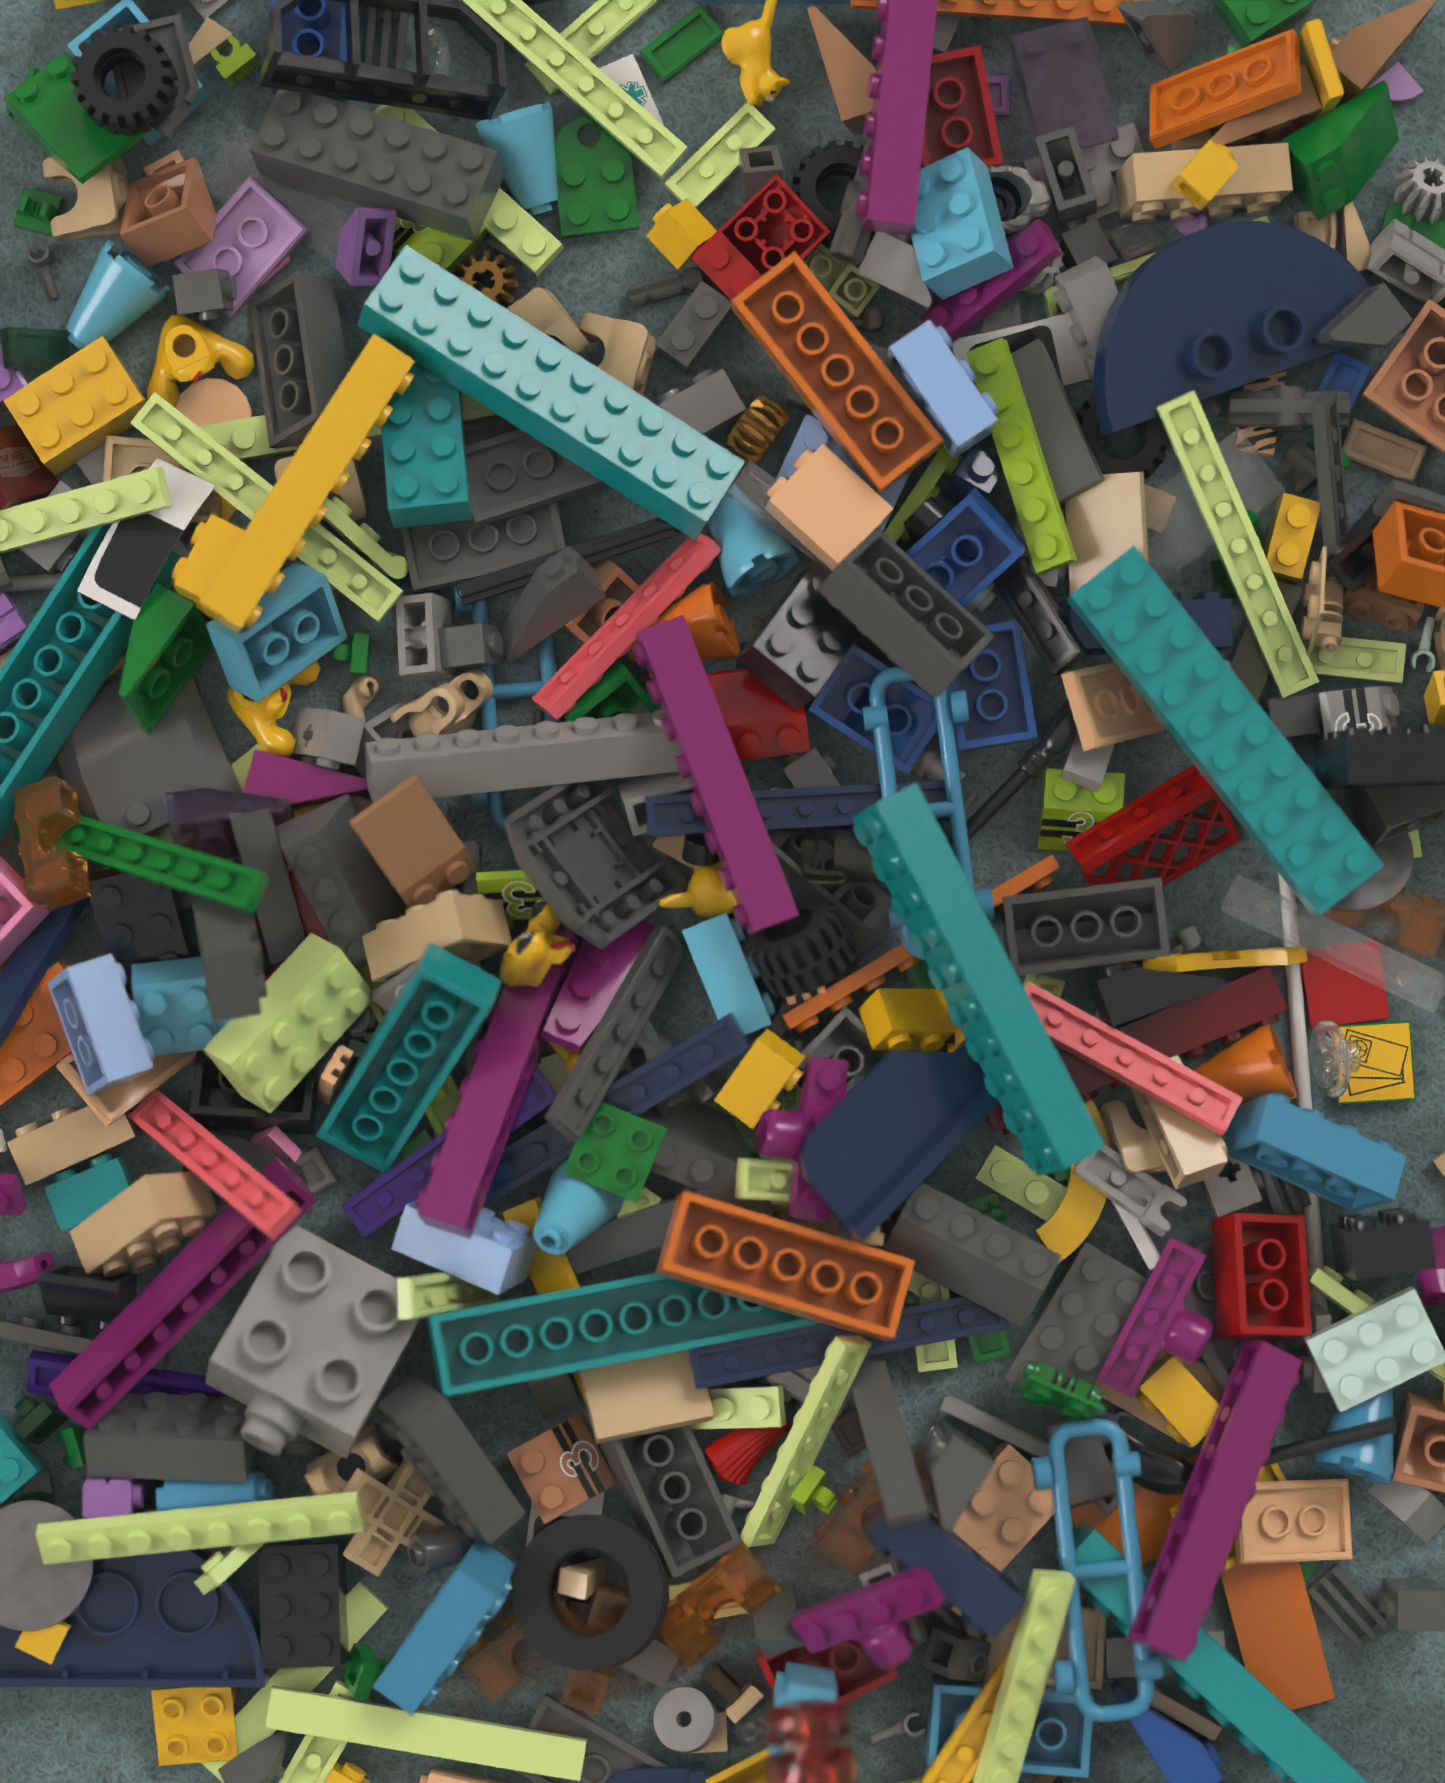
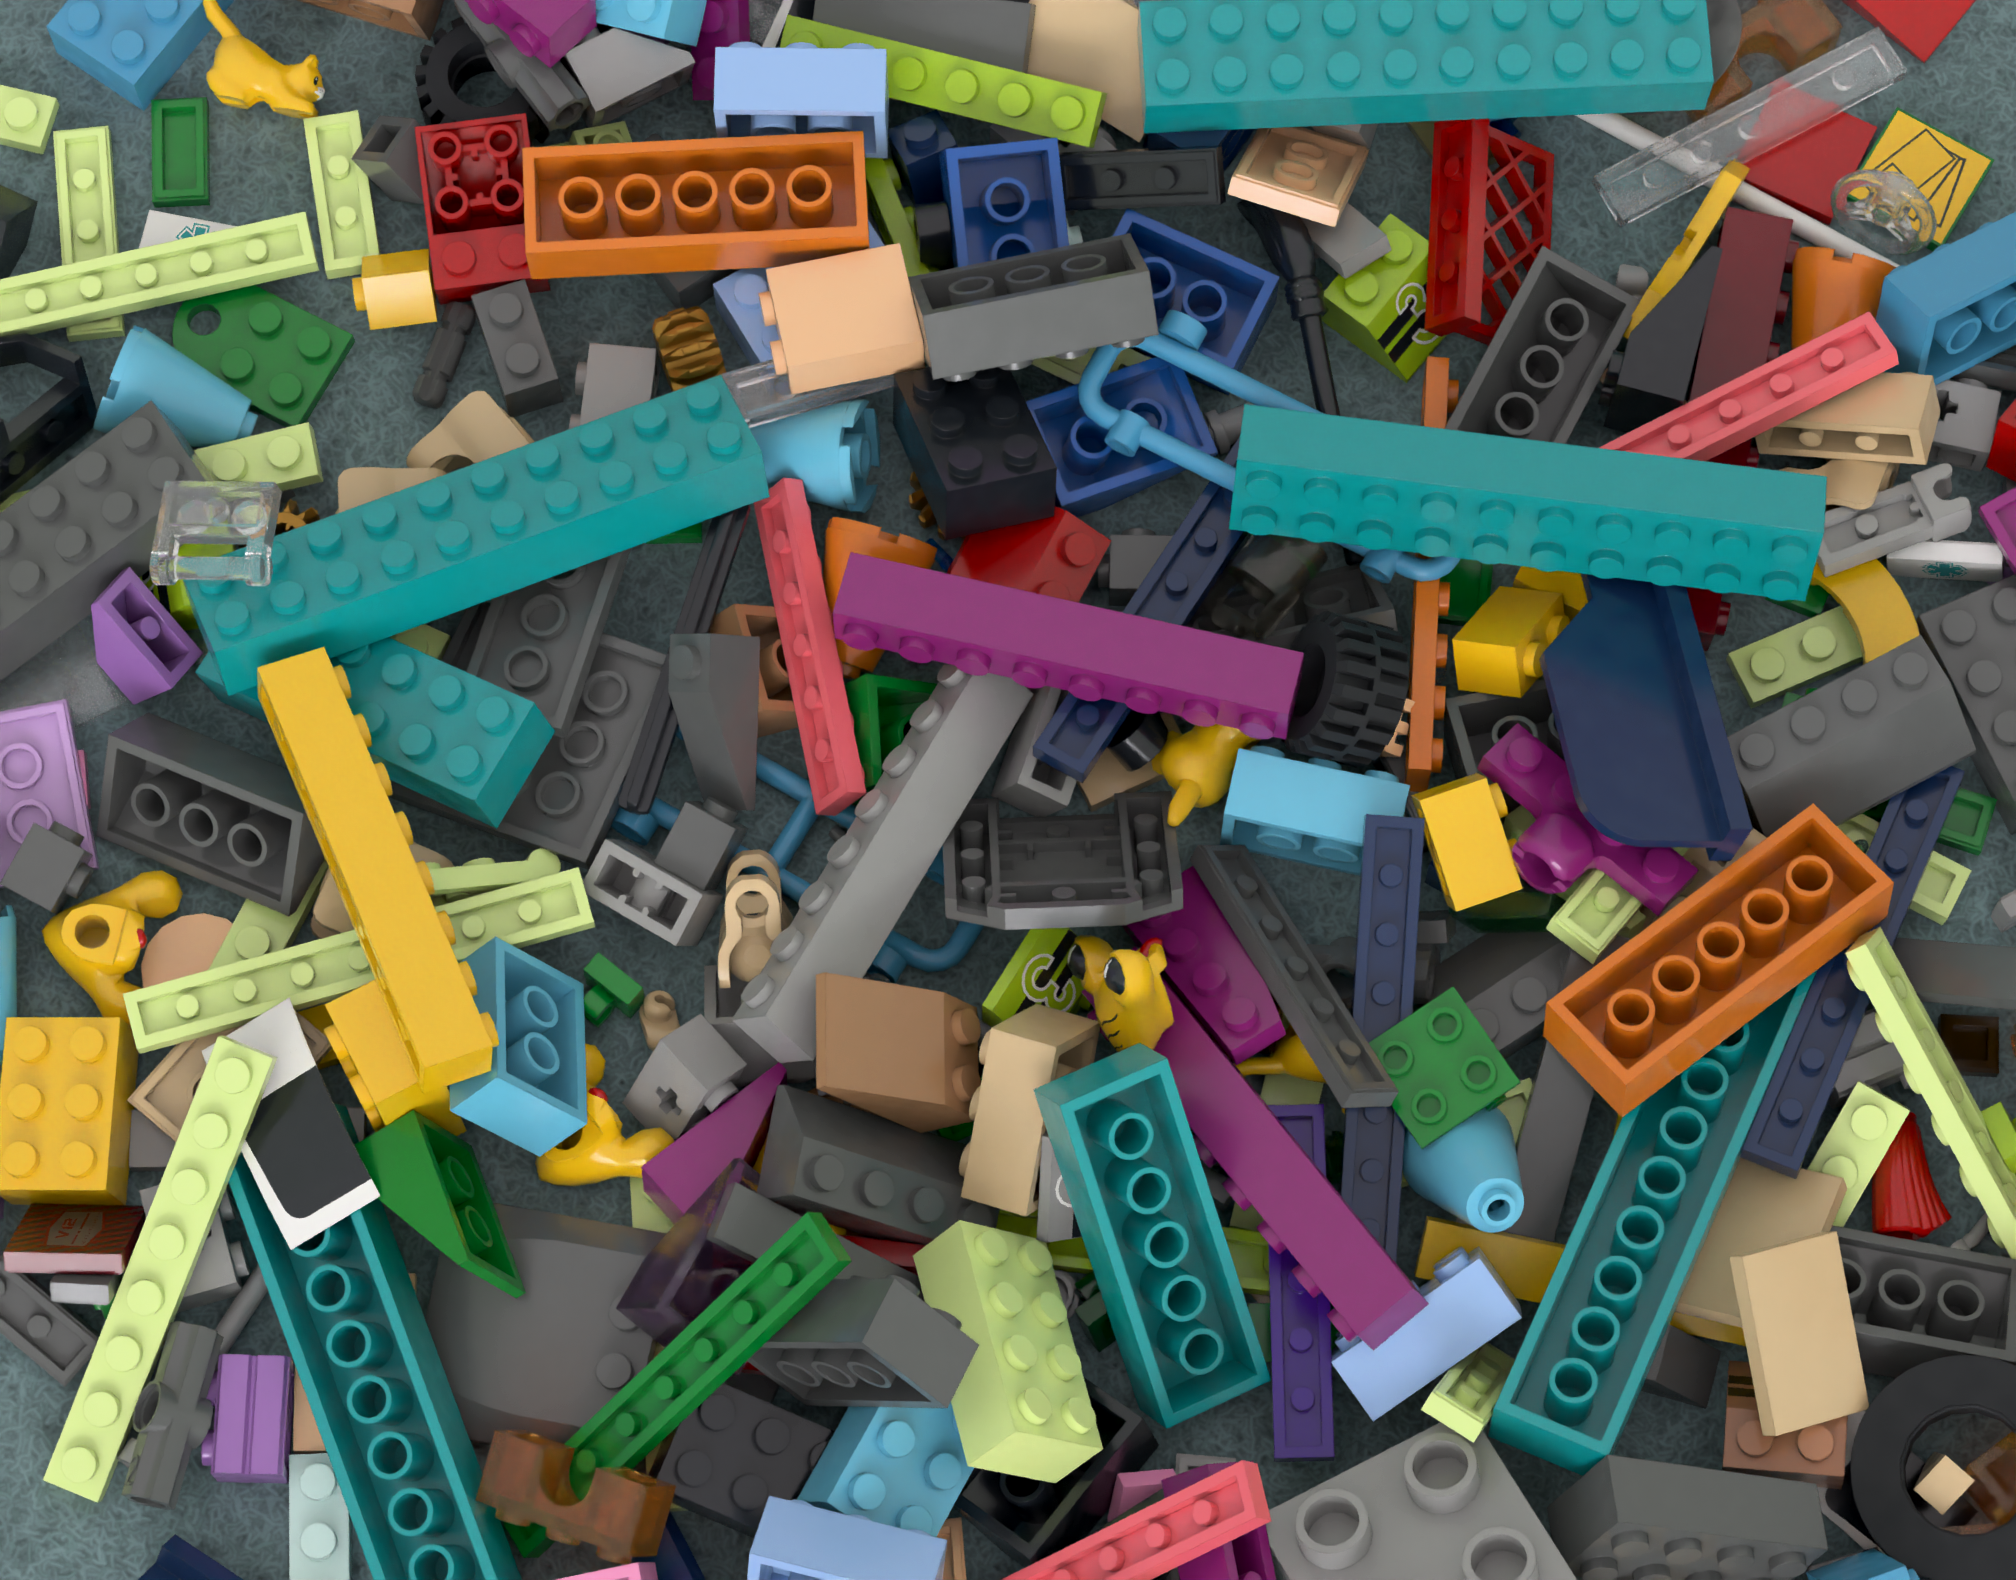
camera: 55 degrees left, 15 degrees down
(334, 1073) = (1105, 1354): light nougat tile -> none
(447, 245) = (215, 515): none -> clear plate
(600, 1451) = (1799, 1333): none -> tan tile

